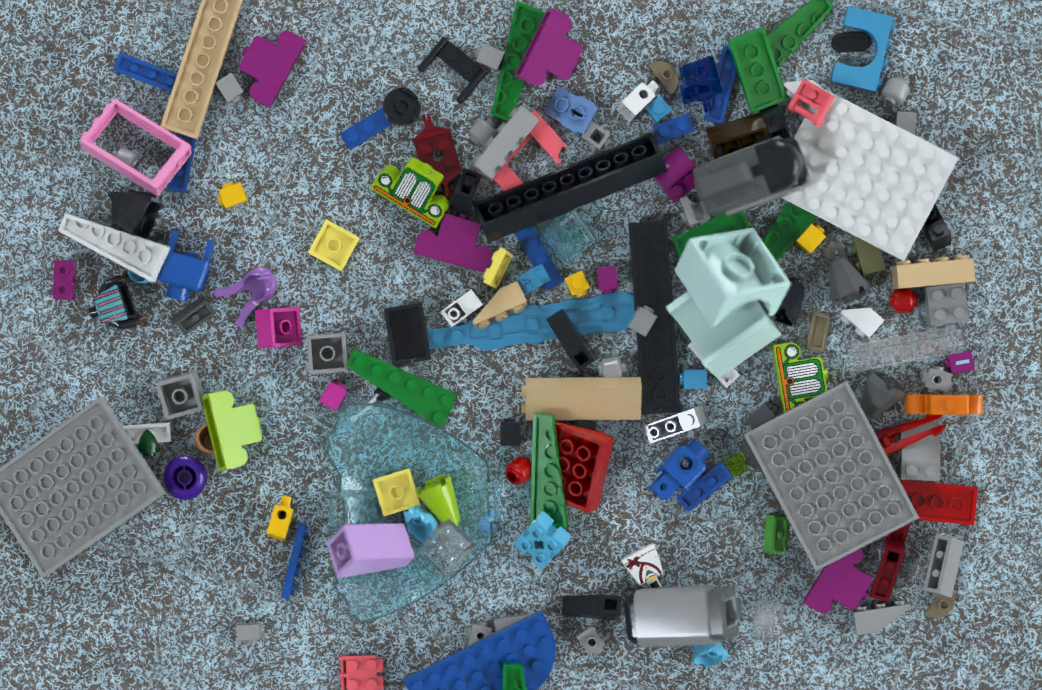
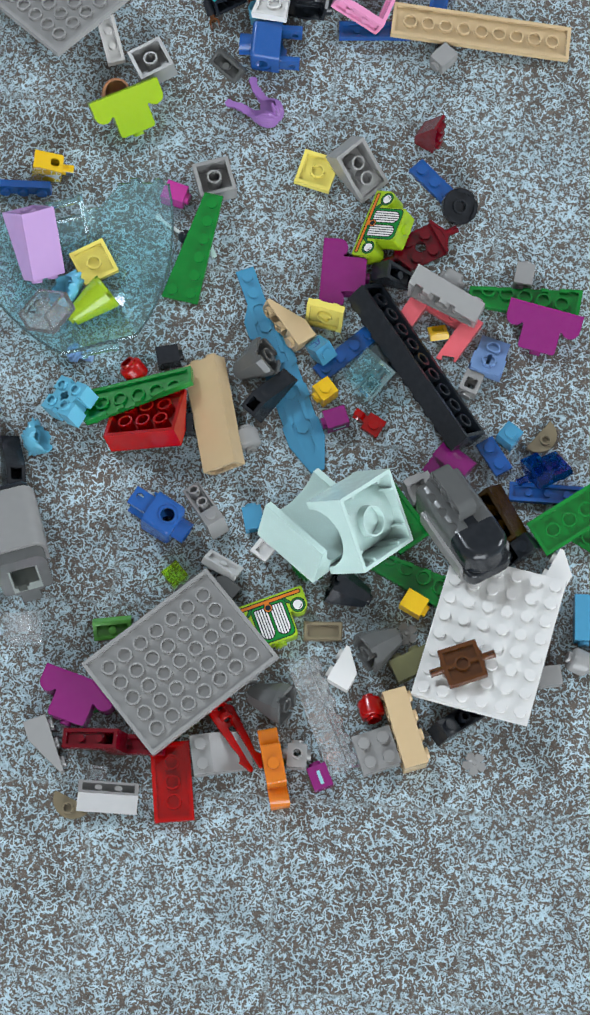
camera: 80 degrees right, 15 degrees down
(148, 444) = (101, 42): dark green plate -> none
(185, 477) = (76, 81): dark purple hat -> none
(232, 195) = (345, 76): yellow brick -> none
(270, 65) = (472, 88): magenta brick -> none
(278, 327) = (231, 136): dark pink slope -> none
(318, 120) = (431, 134): none -> dark red slope
(341, 203) = (357, 168): none -> light grey slope
(407, 333) = (246, 246): black piece -> none
(458, 62) = (512, 251): black plate -> none
(461, 308) = (280, 290): white slope -> none
(534, 157) = (438, 333): none -> yellow tile
(535, 345) = (257, 361): none -> dark grey cone
(573, 578) = (36, 439): none -> medium azure hair
(617, 243) = (370, 424): none -> red plate
(635, 102) = (509, 409): white torso -> none
(642, 320) = (300, 453): light grey brick -> none
(644, 565) = (60, 504): torso -> none
(654, 289) = (292, 471): black plate -> none
(704, 486) = (148, 547): blue plate -> none
(735, 417) = (222, 565): none -> white plate
(813, 96) = (554, 576): coral plate -> none
(888, 206) = (462, 663): none -> reddish brown plate
(971, 212) = (474, 763): none -> light grey plant

